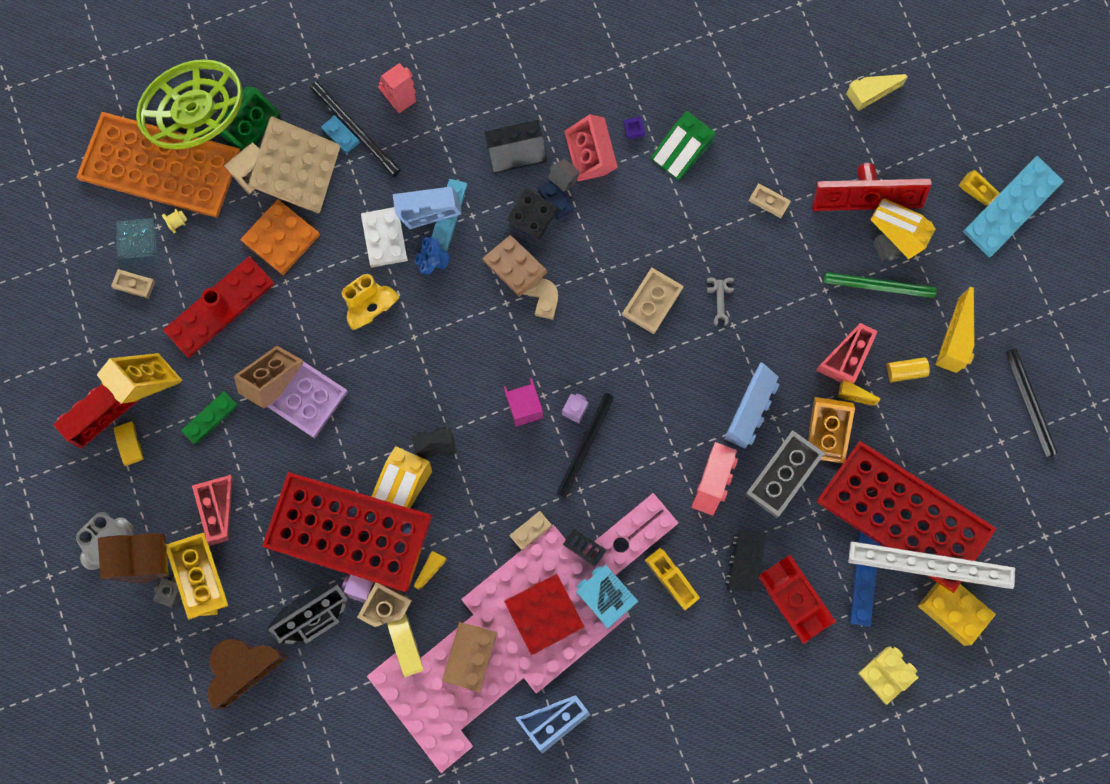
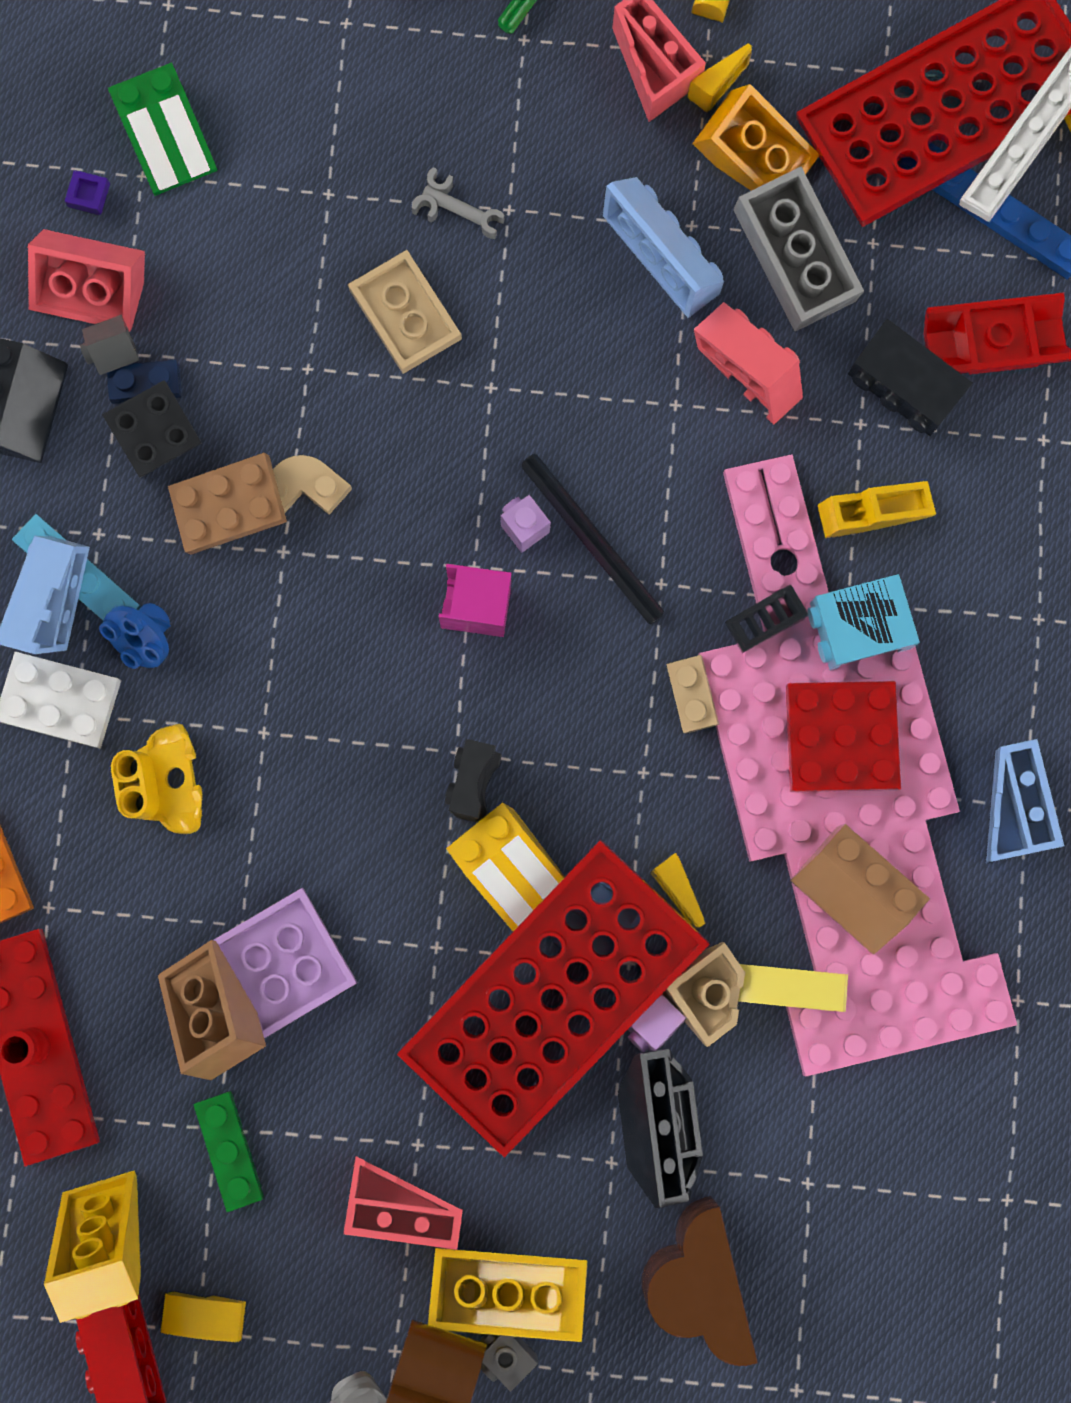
camera: 70 degrees left, 5 degrees up
(769, 200) = (331, 44): tan plate -> none

